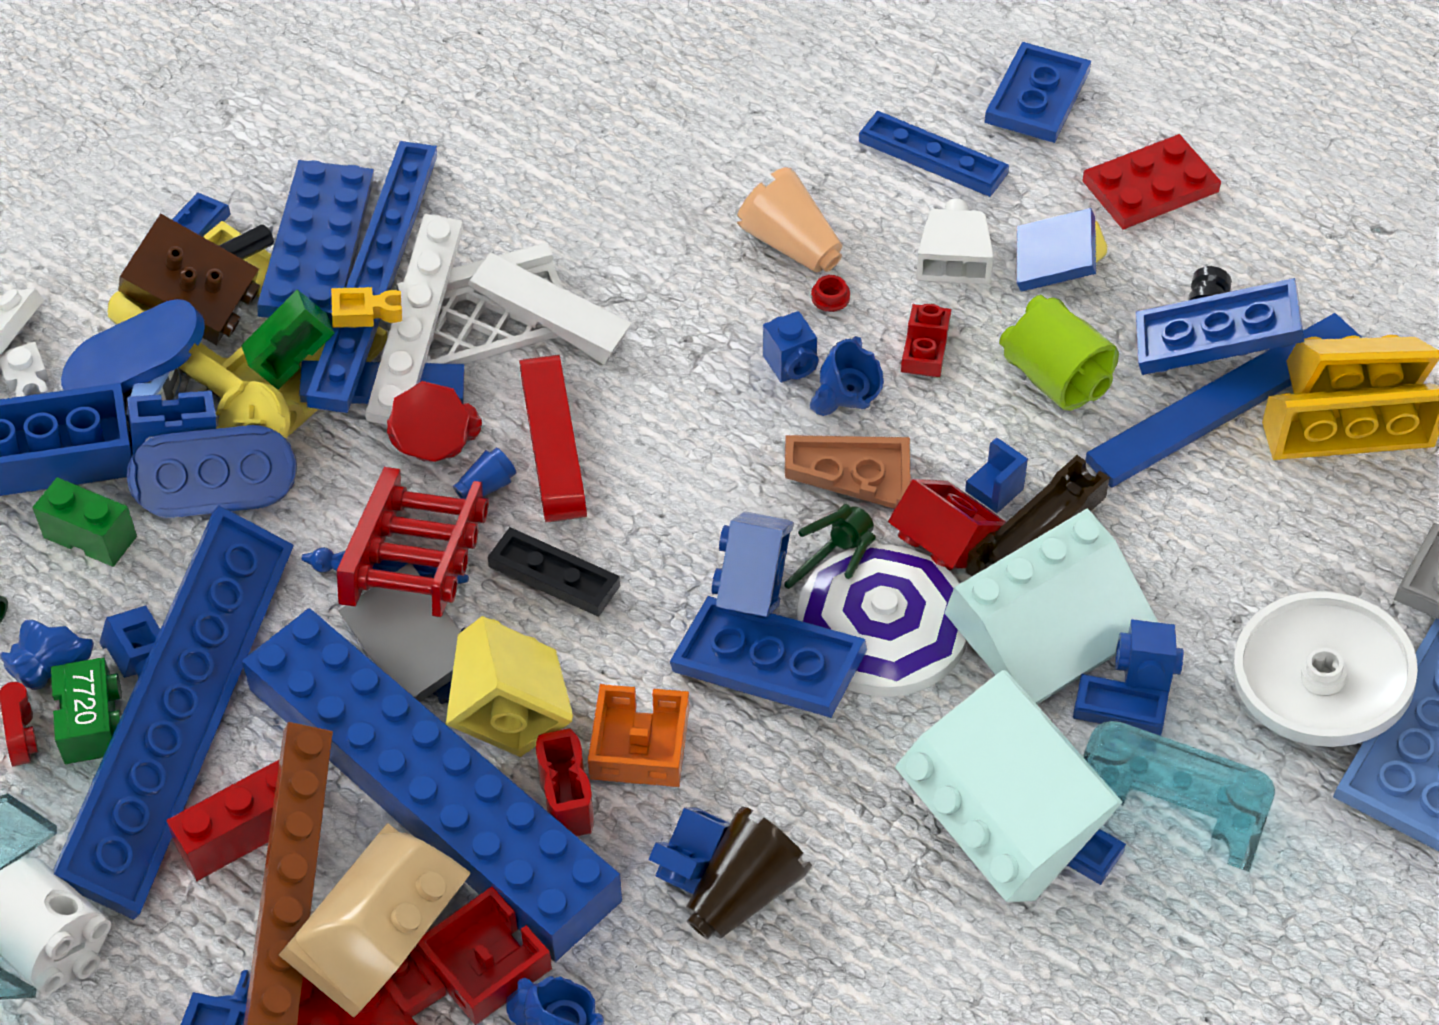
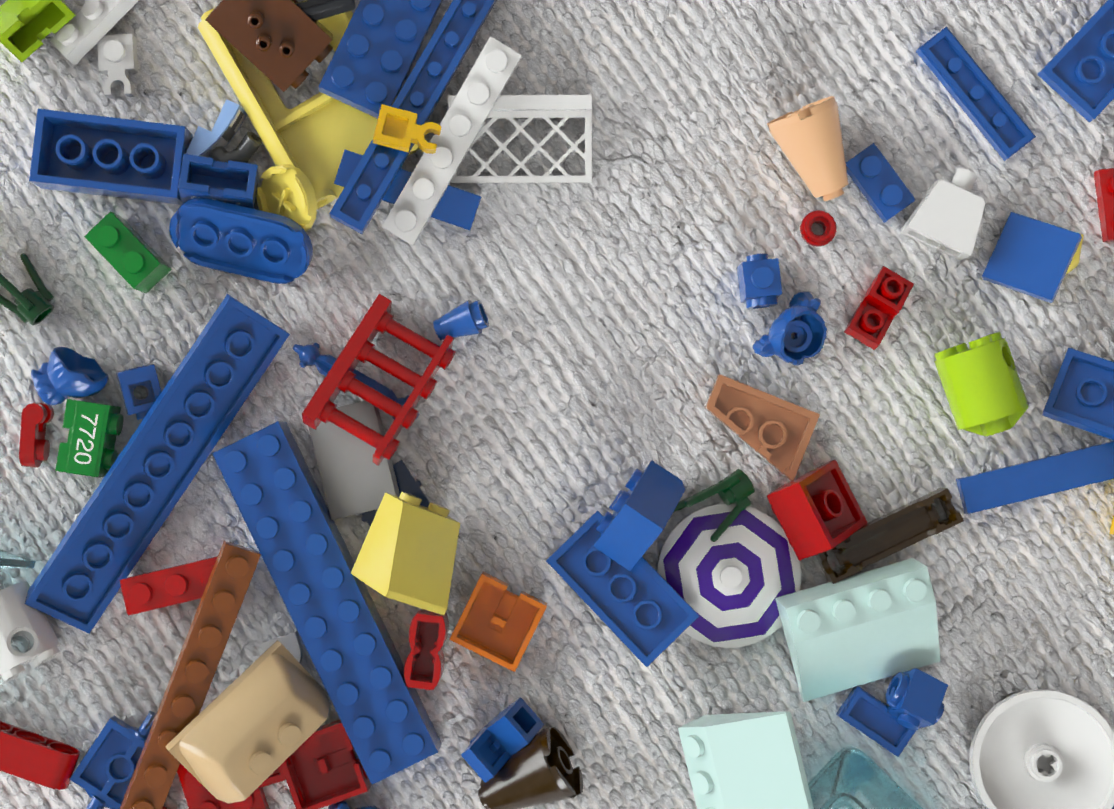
camera: 25 degrees right, 35 degrees up
(136, 348) = (205, 91): blue tile -> none
(287, 339) = (334, 132): green brick -> none
(431, 422) = (431, 263): red piece -> none
(542, 302) = (570, 165): white slope -> none
(553, 439) = (529, 301): red beam -> none
(554, 571) = (486, 437): black plate -> none
(875, 244) = (879, 182): none -> blue plate
(1000, 477) = (874, 479): blue panel -> none

